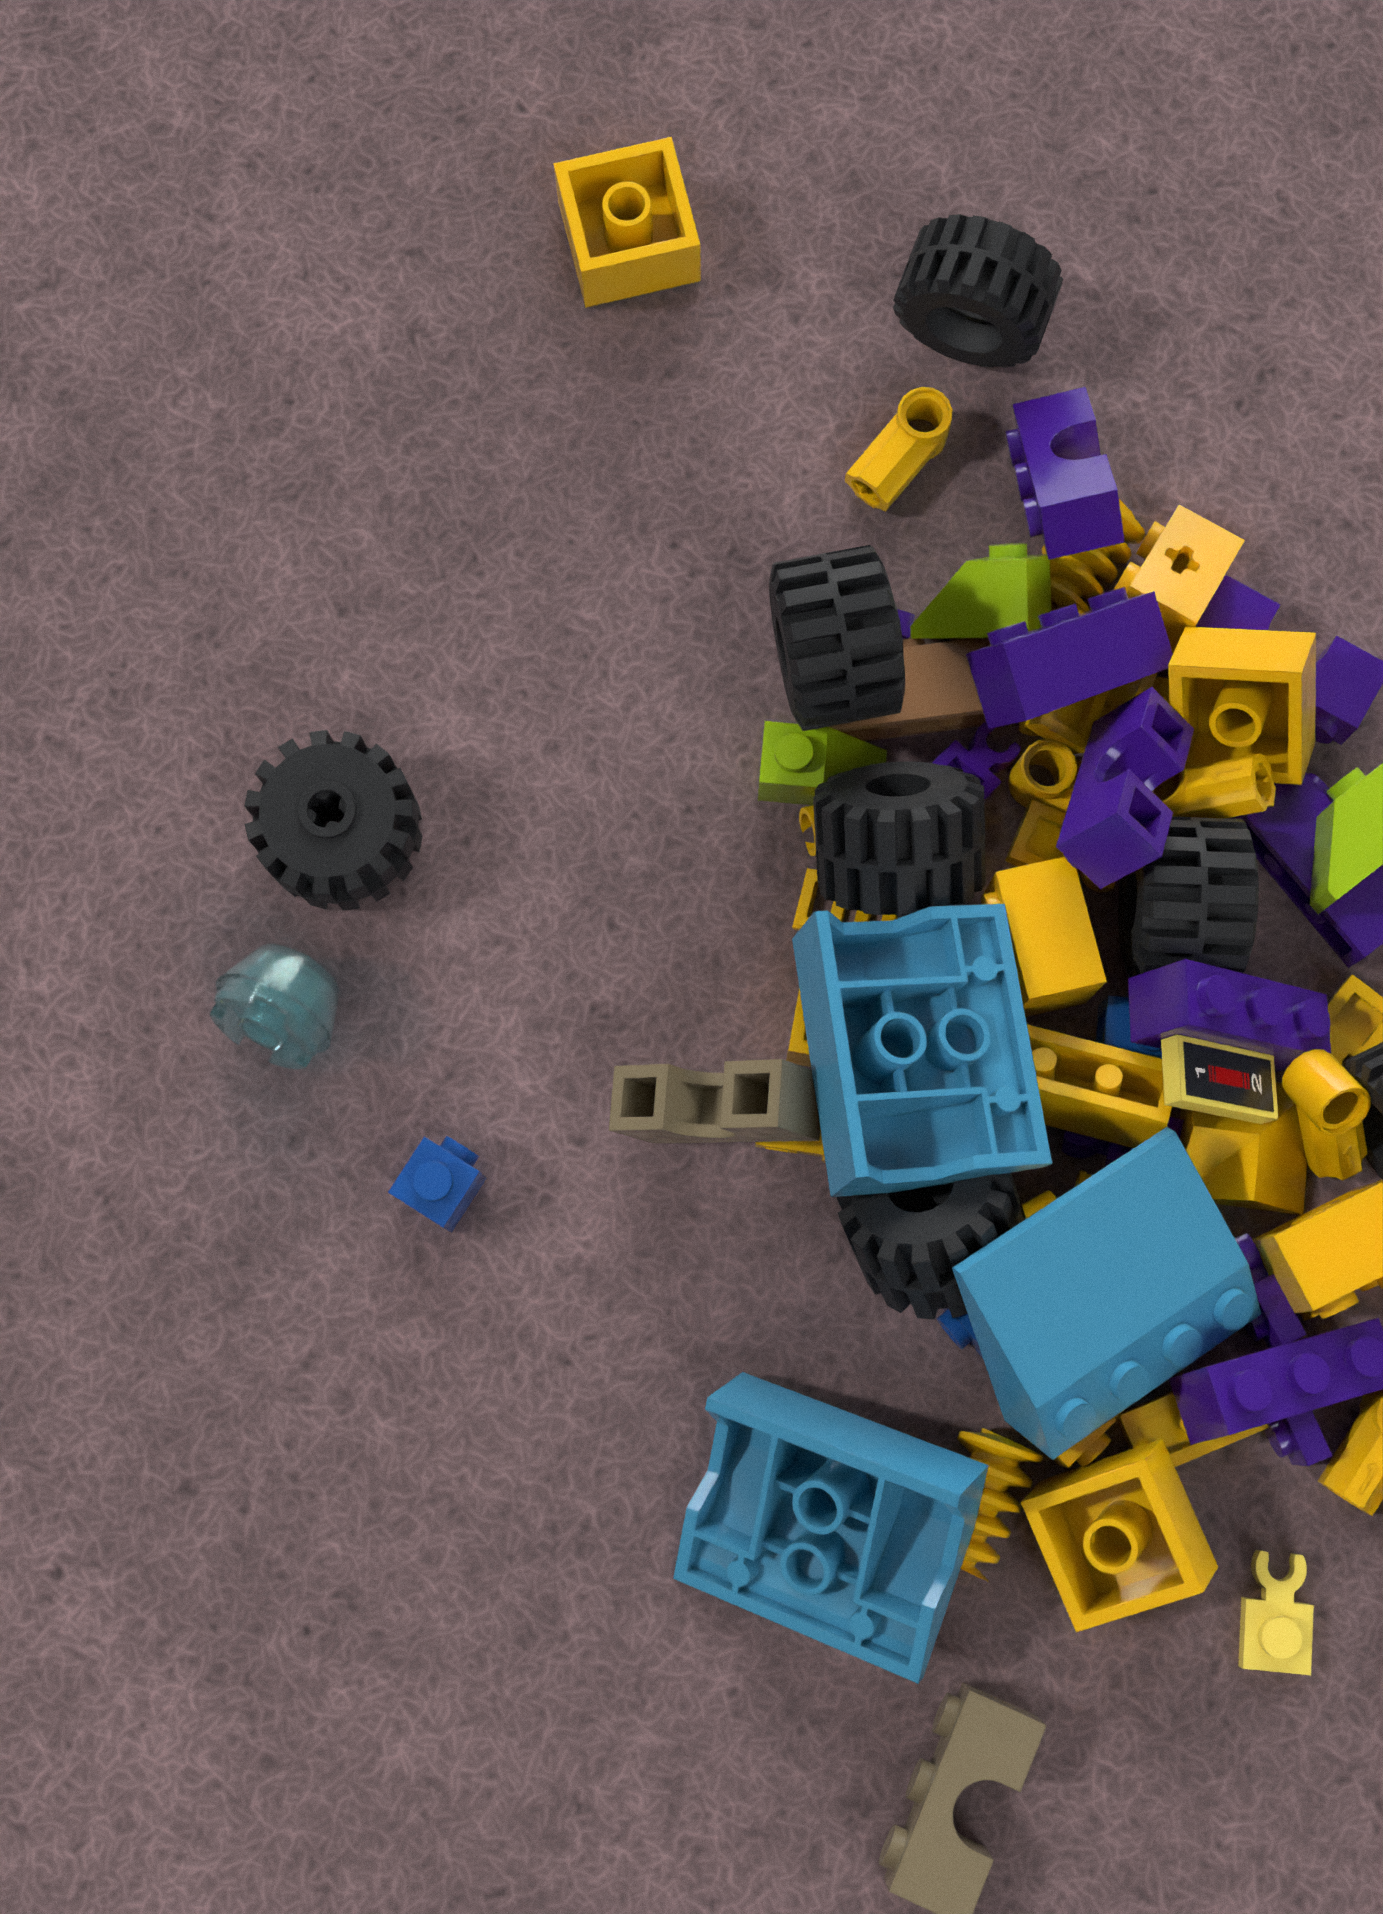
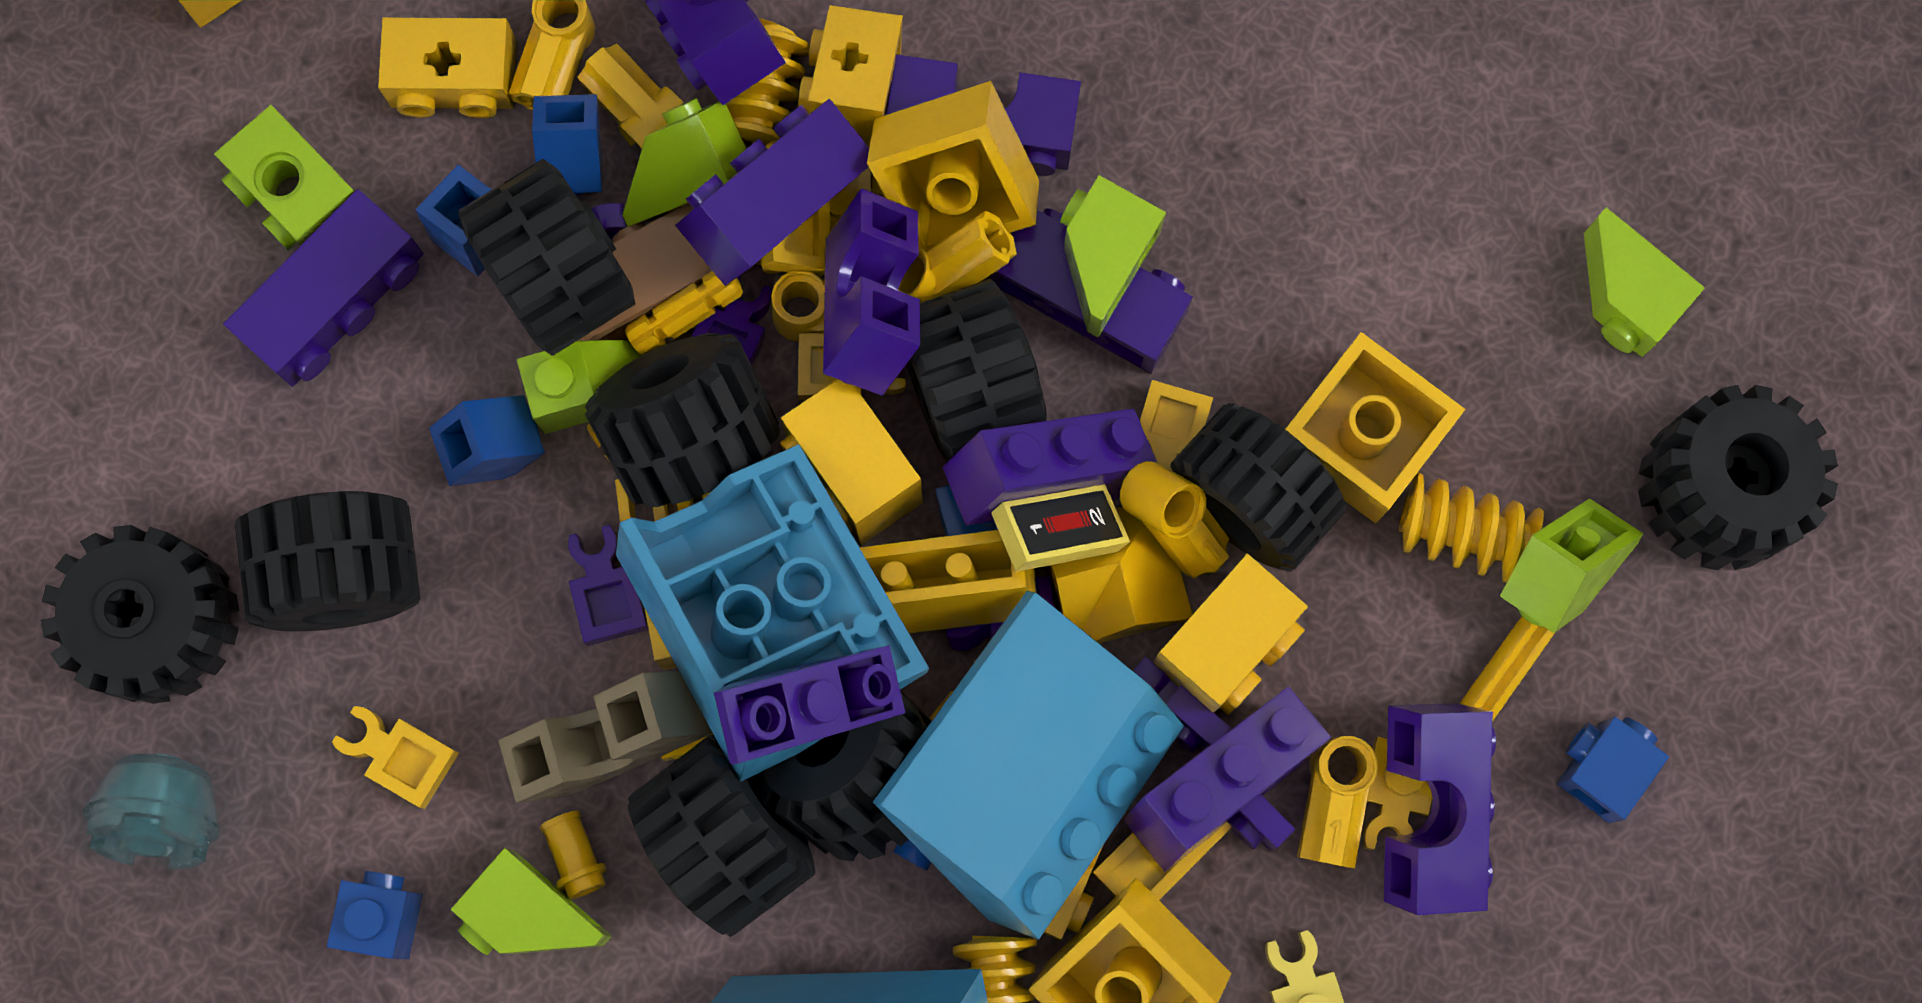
camera: 25 degrees left, 0 degrees up
(518, 1048) = (404, 760): none -> yellow plate
(522, 838) = (327, 561): none -> black wheel
(573, 1233) = (523, 912): none -> lime slope
(609, 445) = (264, 157): none -> lime brick
(611, 589) = (326, 289): none -> dark purple brick
(638, 1199) = (573, 855): none -> yellow pin
(718, 782) = (486, 440): none -> blue brick
(749, 569) = (442, 220): none -> blue brick
(760, 974) = (604, 598): none -> dark purple plate
(780, 402) = (422, 48): none -> yellow brick
(786, 1240) = (717, 840): none -> black wheel
(893, 528) = (570, 138): none -> blue brick
(932, 737) = (681, 312): none -> yellow axle
(937, 1151) = (807, 703): none -> dark purple slope
(955, 517) = (627, 93): none -> yellow piece

